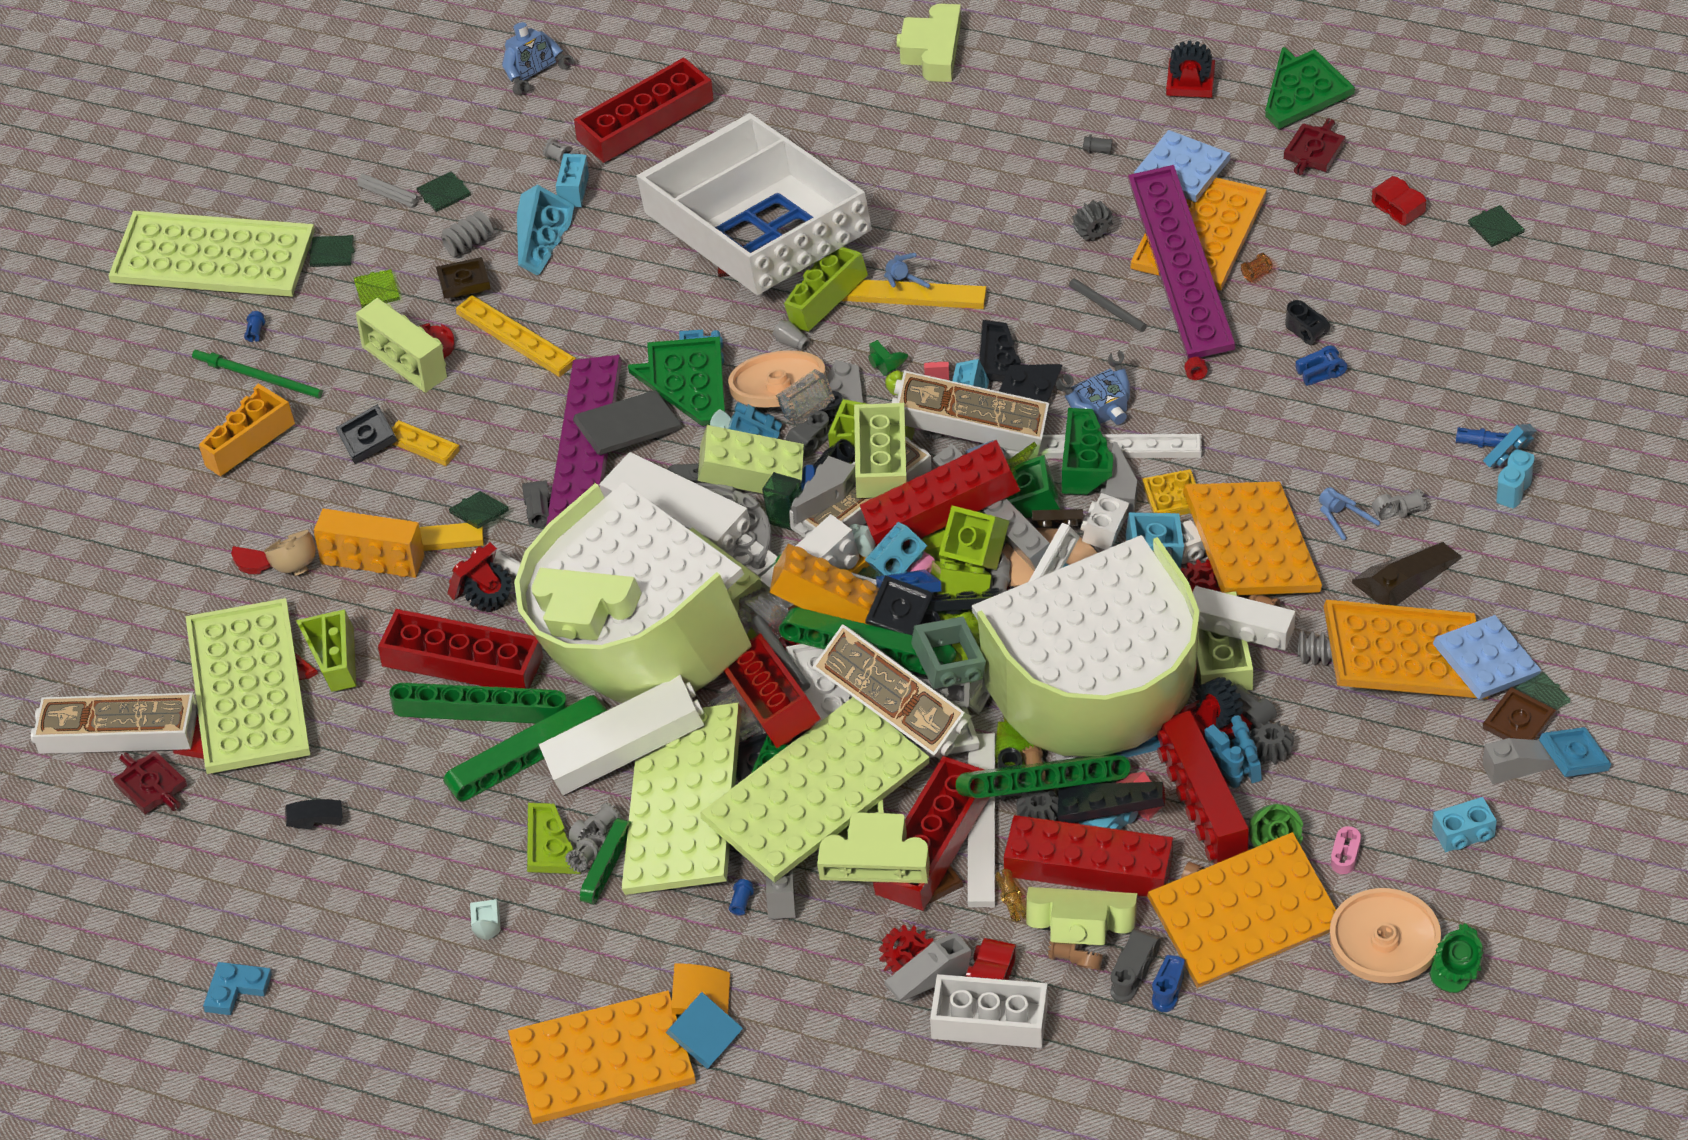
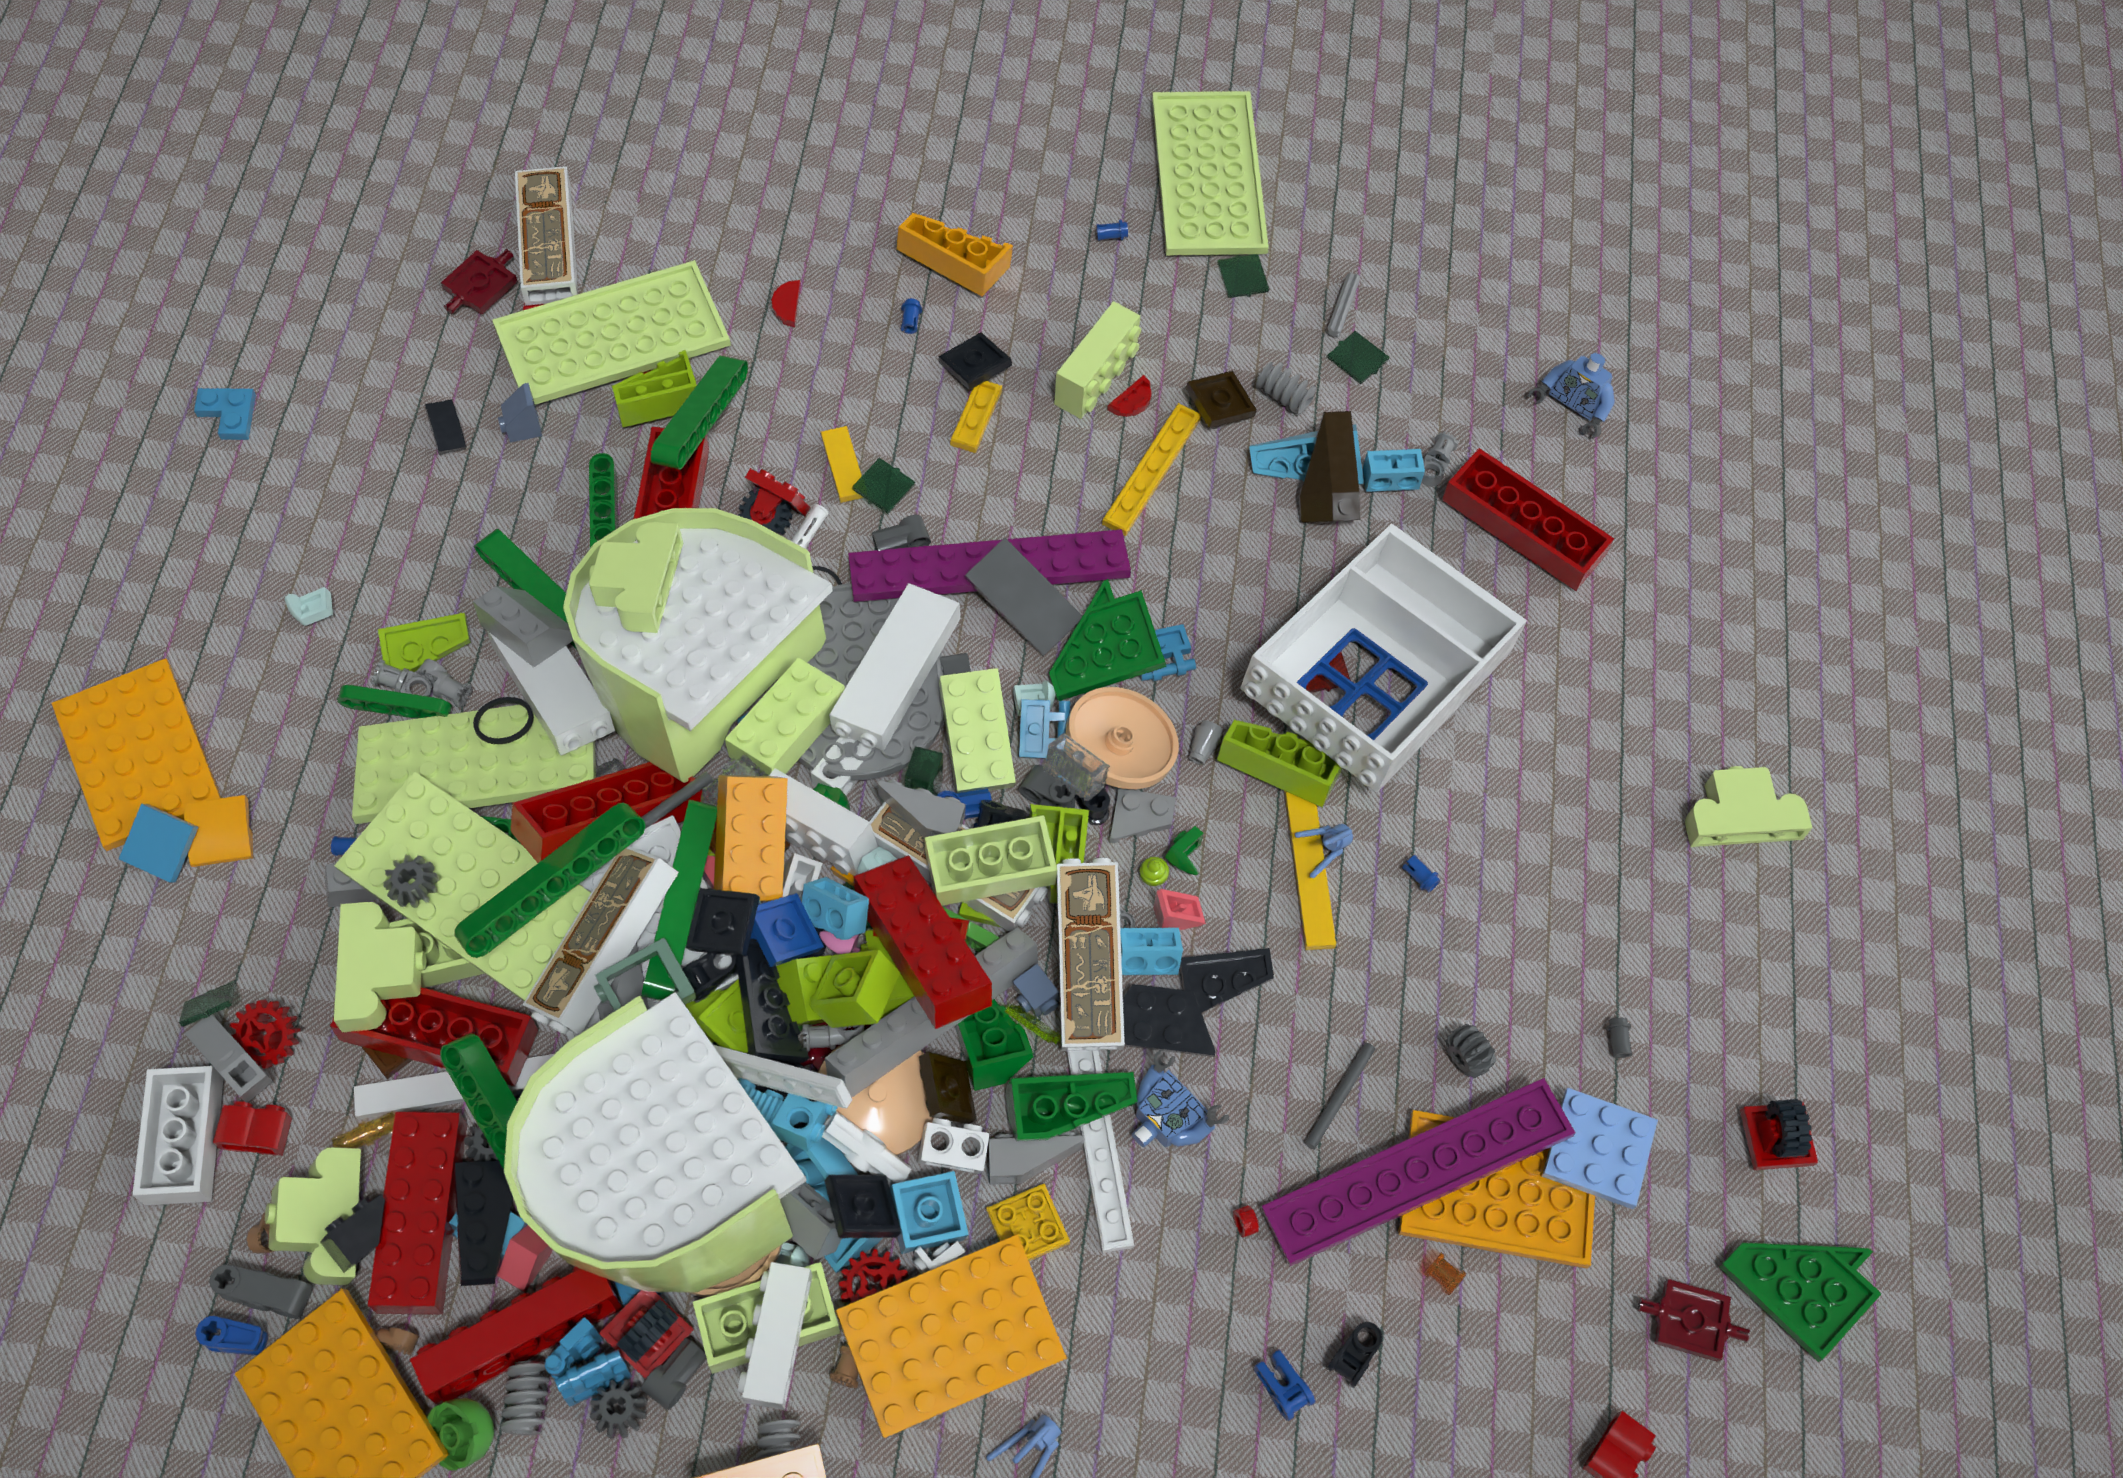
camera: 70 degrees right, 15 degrees up
(216, 361) = (1057, 212): green bar -> none
(292, 553) = (786, 327): tan cylinder -> none
(300, 473) = (911, 310): none -> blue pin
(325, 747) = (520, 416): none -> sand blue slope
(369, 543) = (803, 391): light orange brick -> none
(376, 285) = (1196, 327): clear neon green piece -> none
(378, 606) = (699, 412): none -> green beam
(568, 743) = (522, 623): none -> light grey slope
(576, 212) = (1332, 475): none -> dark brown wedge
(662, 787) = (484, 708): none -> black piece
(810, 809) = (407, 893): none -> dark grey gear
(835, 712) = (549, 880): none -> green beam
(872, 991) = (207, 1004): none -> clear green piece
(939, 228) = (1422, 874): none -> blue pin
(1105, 880) = (357, 1236): none -> black slope
(1253, 795) = (524, 1398): none -> light grey piece

